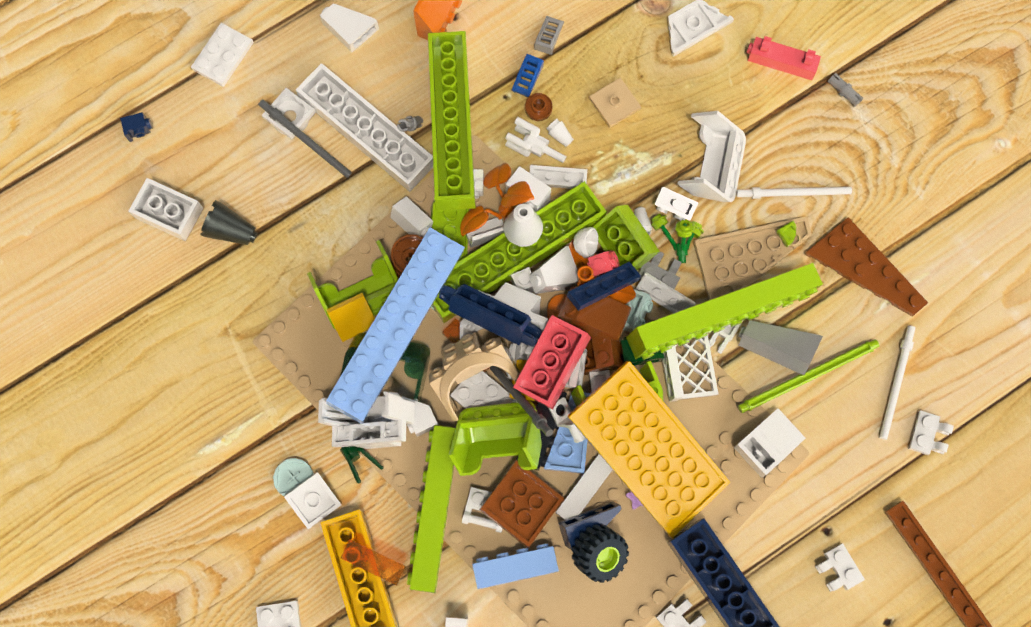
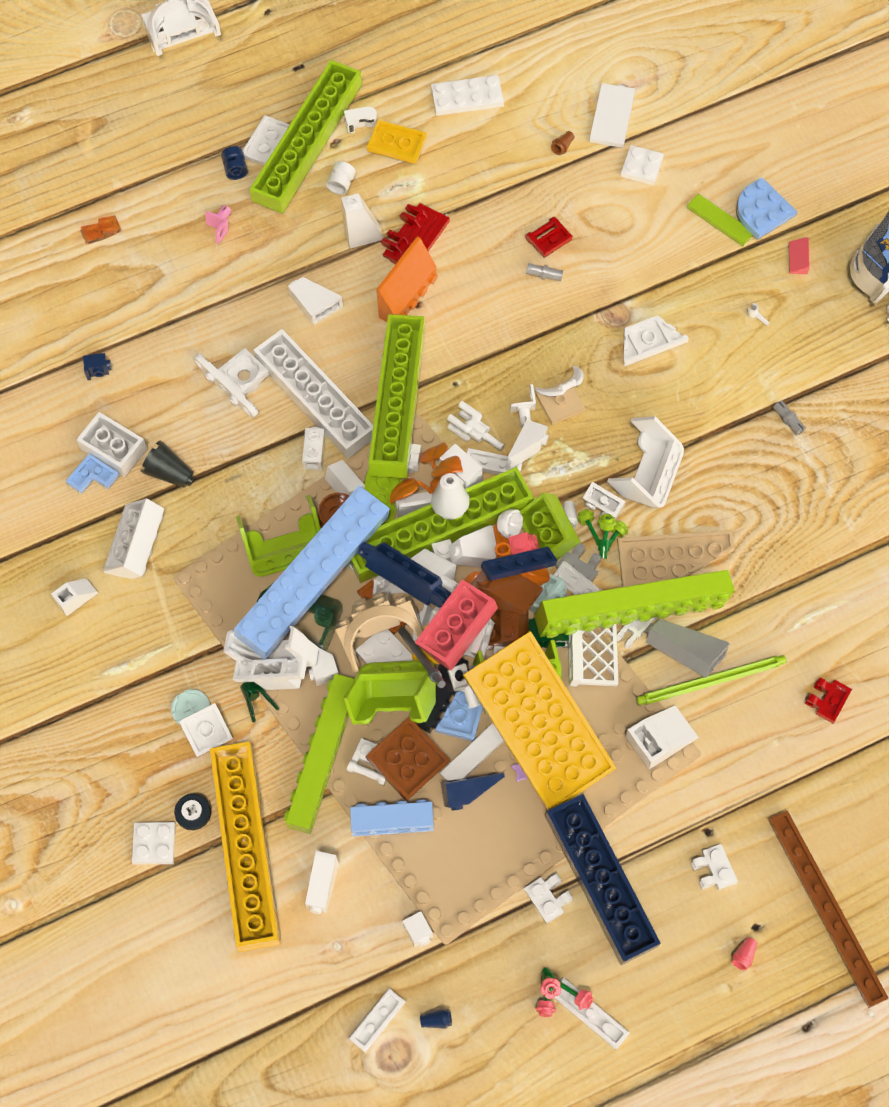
camera: 10 degrees right, 10 degrees down
(149, 239) = (90, 470): none -> light blue plate
(154, 376) = (73, 595): none -> white slope
(206, 307) = (134, 539): none -> white slope
(222, 54) = (189, 311): white plate -> none
(276, 114) = (230, 370): dark grey bar -> none
(284, 139) = (235, 396): none -> white piece
(320, 588) = (195, 818): none -> black wheel
(351, 317) = (270, 562): yellow tile -> none
(373, 185) = (313, 448): none -> white brick
(373, 562) = (254, 791): clear orange tile -> none
(410, 123) = (357, 395): light grey pin -> none
(526, 65) = (485, 356): blue slope -> none
(538, 107) = (484, 396): dark orange plate -> none
(545, 47) = (504, 343): light grey slope -> none
(560, 133) = (501, 422): white cone -> none
(580, 115) = (525, 407): none -> white bracket
(590, 152) = (528, 443): none -> white slope
(600, 553) = (476, 813): black wheel -> none
(628, 78) = (576, 380): none -> white piece
(757, 192) = (686, 503): white bar -> none
(783, 58) = (732, 380): coral brick -> none
(787, 233) = (710, 543): lime tile -> none
(861, 262) = (782, 582): dark orange wing -> none
(906, 346) = (814, 666): white bar -> none
(924, 434) = (820, 749): white plate -> none
(931, 379) = (833, 701): none -> red plate

